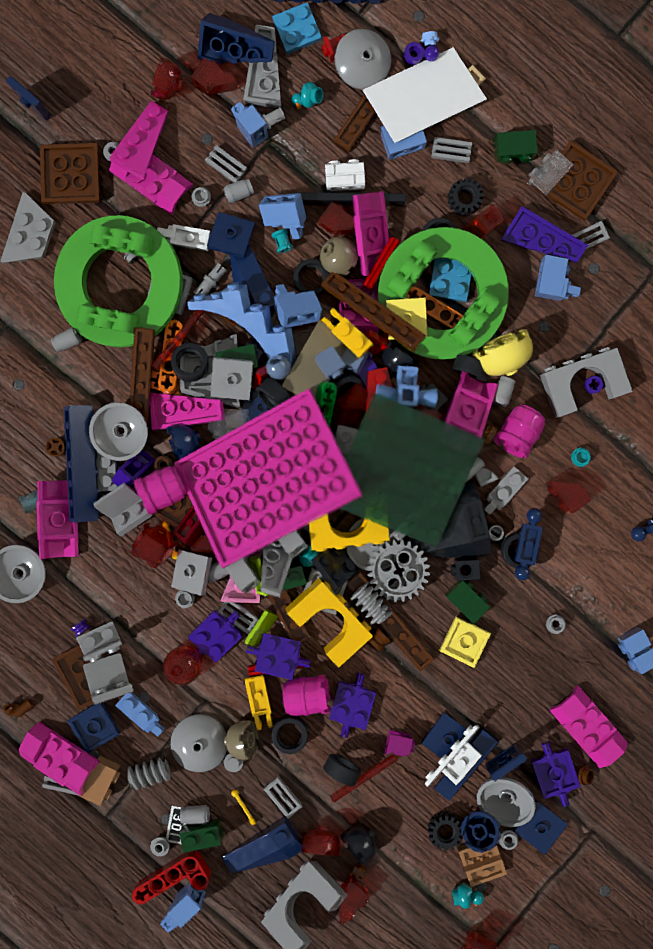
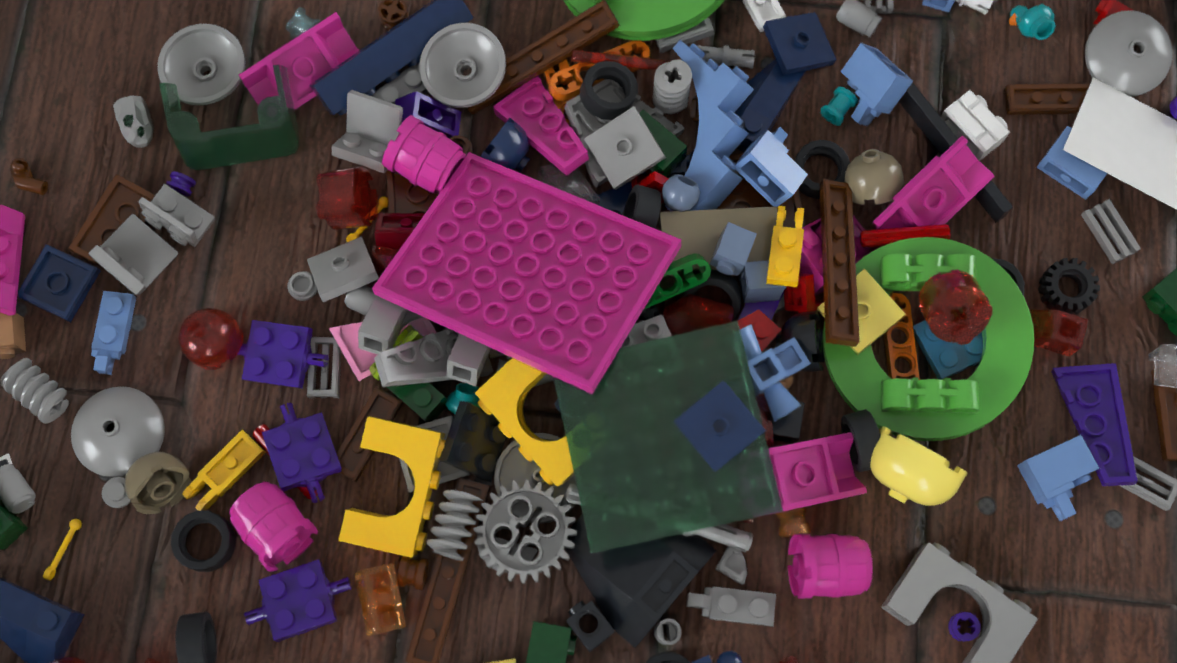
camera: 55 degrees right, 15 degrees down
(24, 630) = (134, 120): none -> light grey rock
(88, 561) = (271, 138): none -> clear green windscreen
(203, 322) = (672, 86): none -> light grey piece
(262, 626) = (333, 405): lime slope -> none
(267, 789) = (108, 595): light grey tile -> none
(337, 220) = (913, 148): clear red slope -> none
(382, 665) = (380, 599): none -> clear orange brick
(422, 441) = (719, 426): none -> dark blue plate
(442, 272) = (955, 306): none -> clear red brick
(504, 391) = (863, 508): light grey piece -> none

